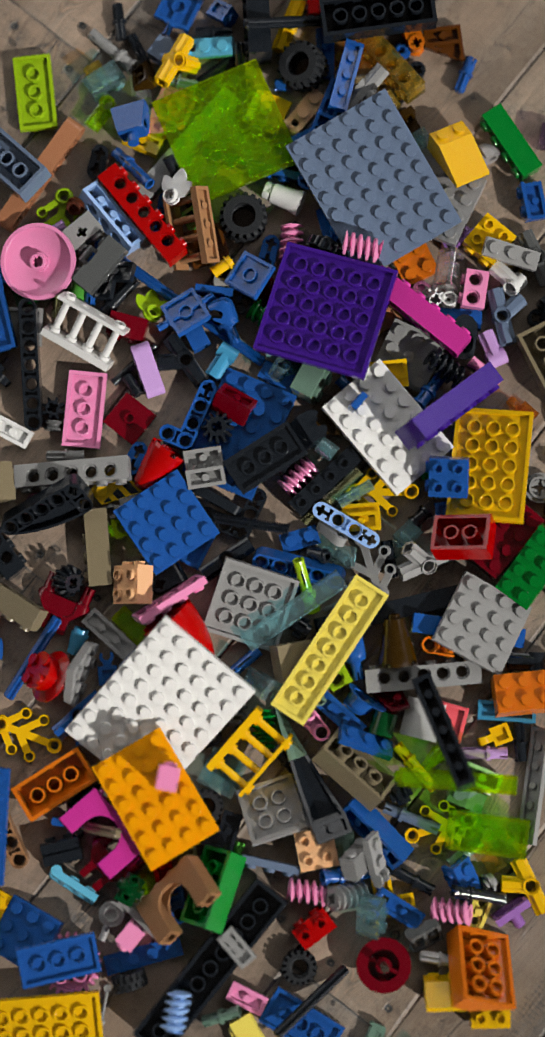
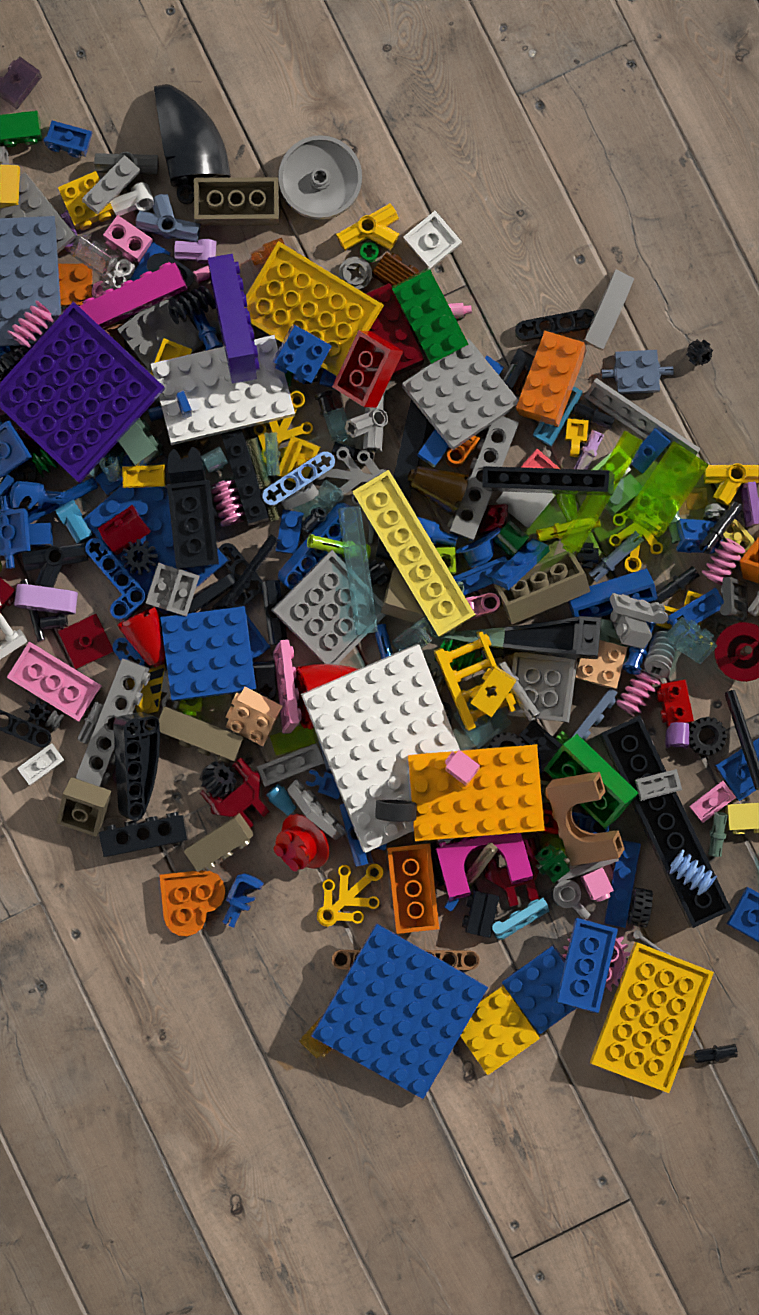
camera: 65 degrees left, 0 degrees up
(39, 646) = (269, 839): blue axle -> none
(108, 739) = (396, 810): none -> black tyre
(235, 771) = (503, 684): none -> yellow brick
(262, 784) = (521, 696): none -> light grey pin
(285, 398) = (144, 476): none -> yellow plate
(286, 942) = (677, 735): none -> medium lavender piece
(517, 804) = (650, 450): none -> blue plate

